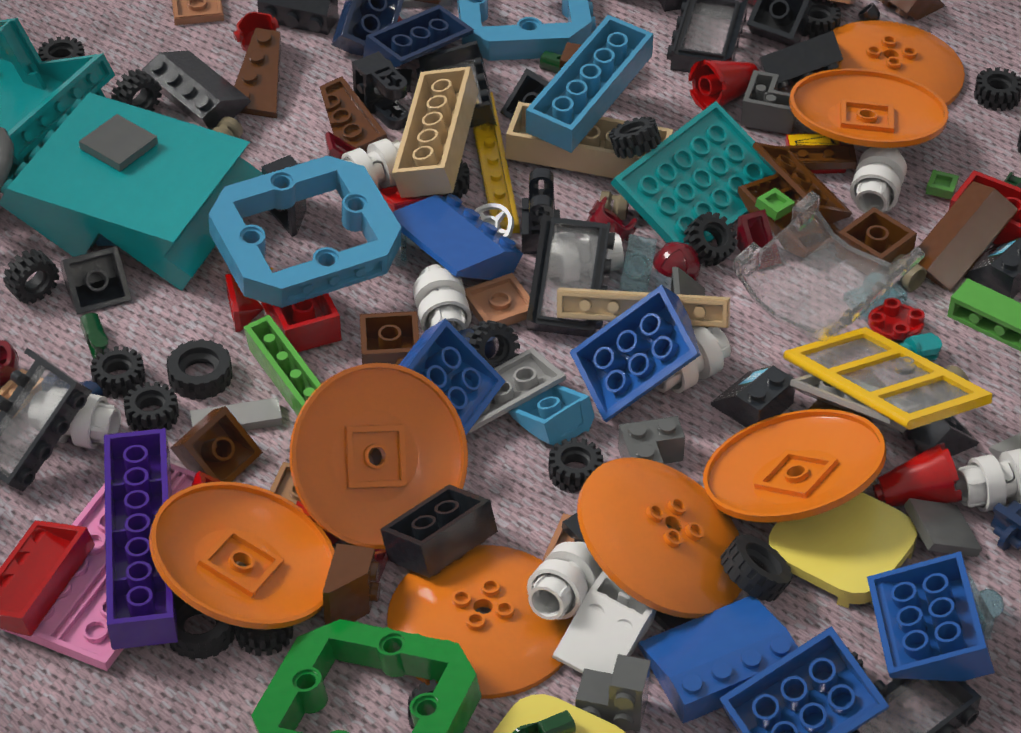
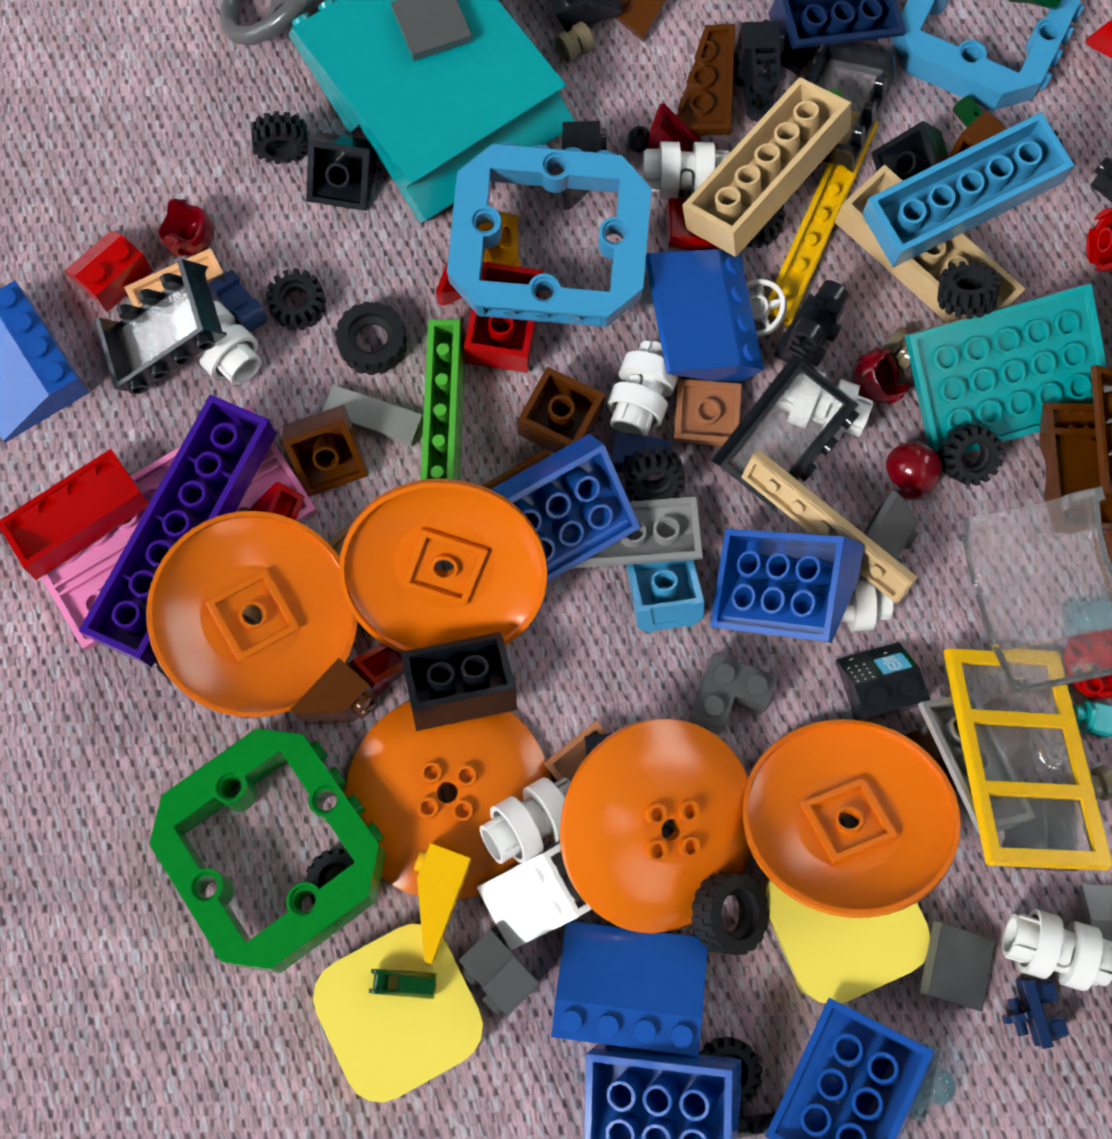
camera: 30 degrees right, 30 degrees up
(94, 333) = (303, 240): dark green bar -> none
(151, 396) = (295, 345): black tyre -> none
(527, 662) = (439, 887): none -> yellow slope
(573, 452) = (658, 647): black tyre -> none
(637, 264) = (872, 447): clear light blue tile -> none
(753, 228) = (1020, 479): dark red slope -> none
(775, 204) = (1066, 452): bright green plate -> none
(923, 477) = (979, 900): red cone -> none

